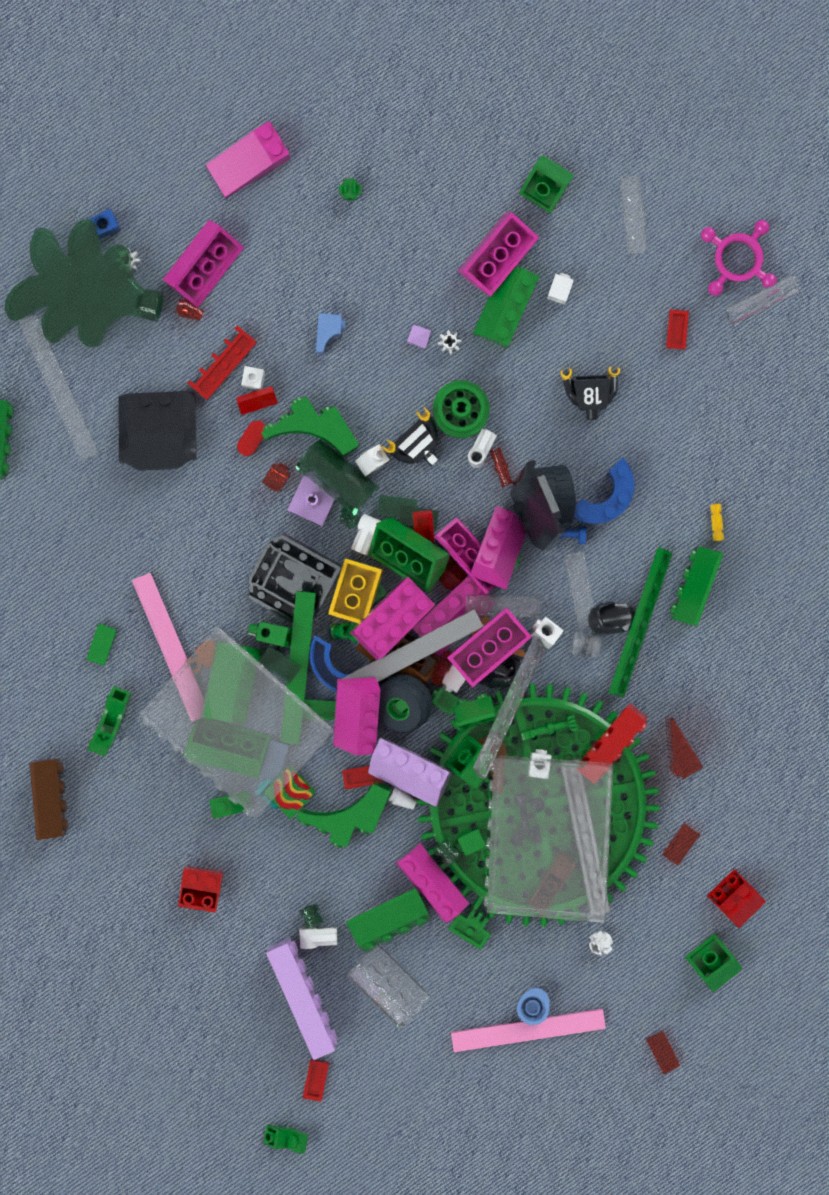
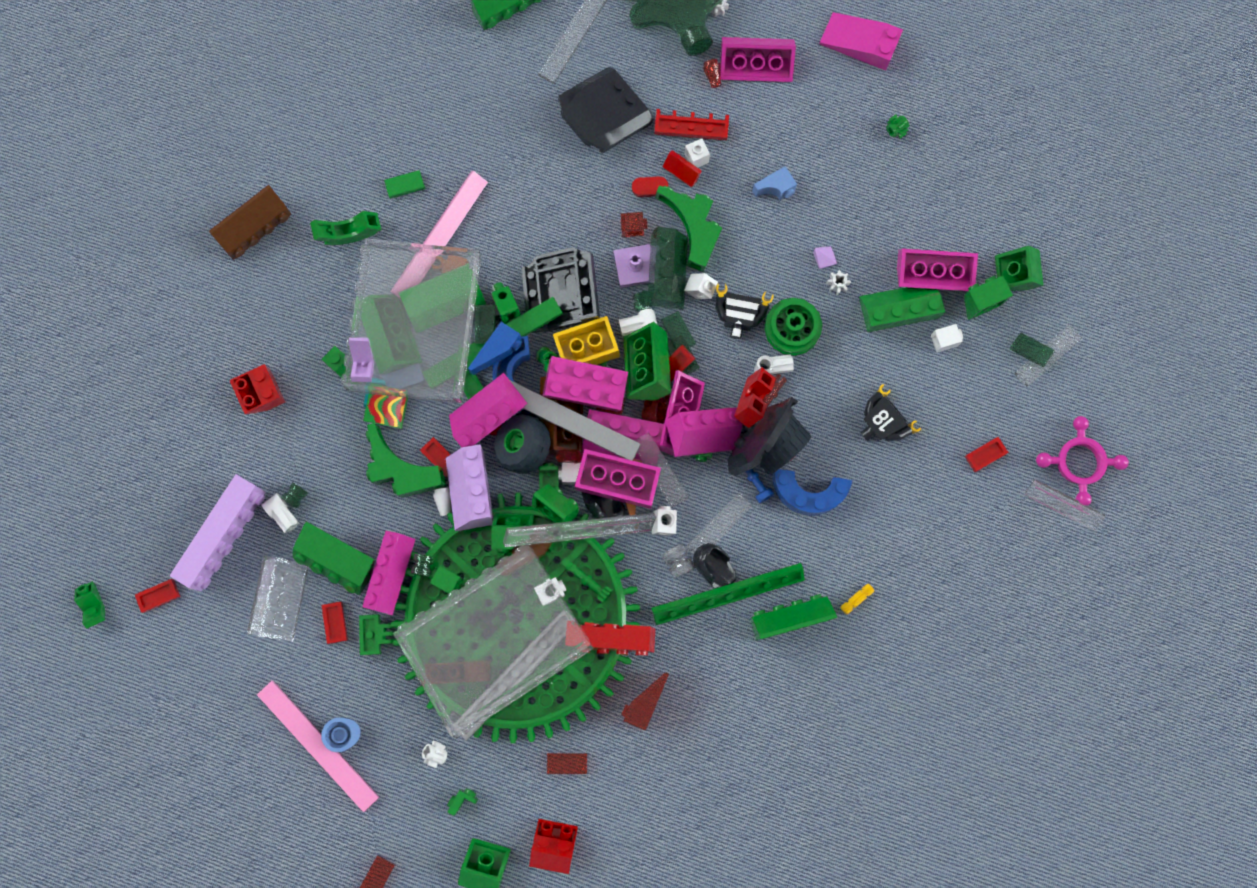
camera: 55 degrees right, 10 degrees down
(248, 789) = (362, 360): none -> lavender bracket
(309, 665) = (499, 346): none -> blue slope
(439, 952) = (334, 622): none -> red tile
(491, 477) = (751, 404): none -> red arch
(552, 231) = (986, 296): none -> green slope
(620, 226) = (1032, 349): none -> clear green tile
(649, 951) = (456, 801): none -> green bracket

